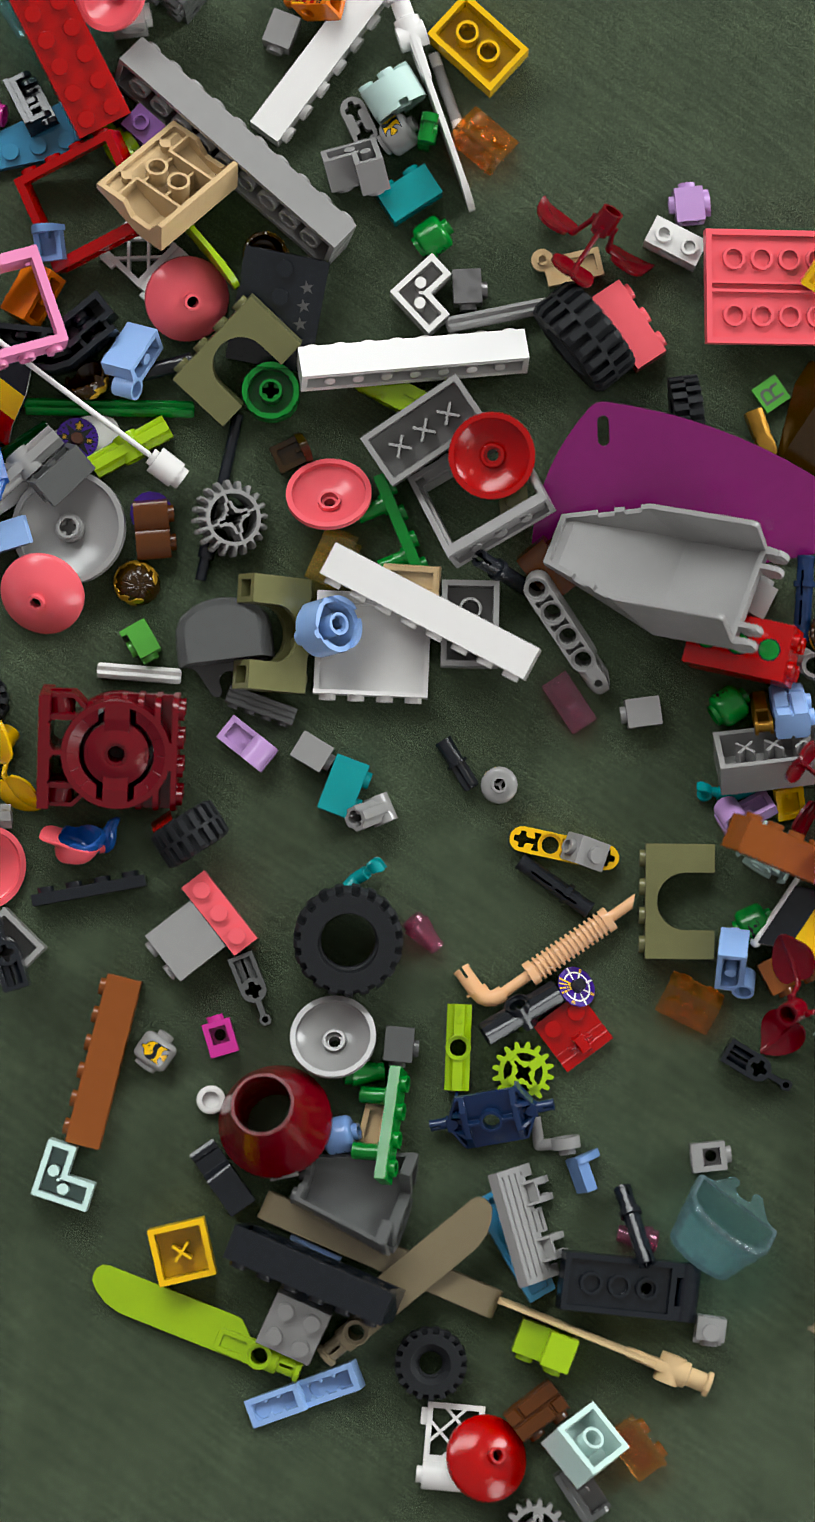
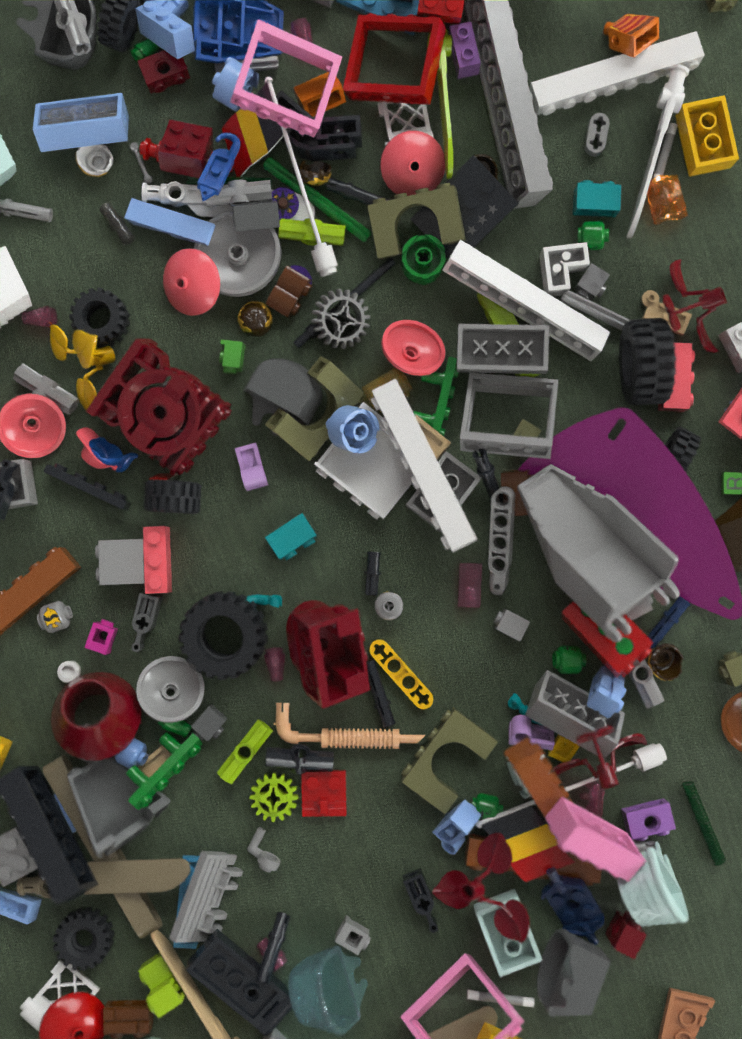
camera: 35 degrees right, 0 degrees up
(49, 241) = (352, 65): medium blue tile -> none
(131, 359) = (350, 176): light blue hinge -> none
(139, 673) = (216, 375): white axle -> none
(168, 185) = (451, 79): tan piece -> none
(222, 1177) = (38, 727): black piece -> none
(261, 705) = (279, 452): dark grey piece -> none
(281, 32) = (589, 44): light grey brick -> none
(291, 453) = (408, 307): dark brown tile -> none
(313, 752) = (288, 501): light grey brick -> none
(354, 166) = (577, 157): light grey brick -> none
(373, 812) = (298, 565): light grey piece -> none
(393, 92) = (632, 127): light aqua brick -> none
(398, 134) = (617, 157): light grey head -> none
(428, 131) = (638, 164): green plate -> none
(469, 877) = (328, 651): none -> dark red brick
(470, 458) = (535, 376): red dish -> none
(512, 1107) = (250, 816): dark blue plate -> none
(576, 986) = (346, 767): dark purple piece -> none
(581, 1171) = (265, 886): medium blue tile -> none
(585, 851) = (412, 686): light grey bracket -> none
(690, 1002) = (411, 828): clear orange bracket -> none
(760, 430) = (712, 498): pearl gold bar -> none
(761, 712) = (586, 680): pearl gold bar -> none

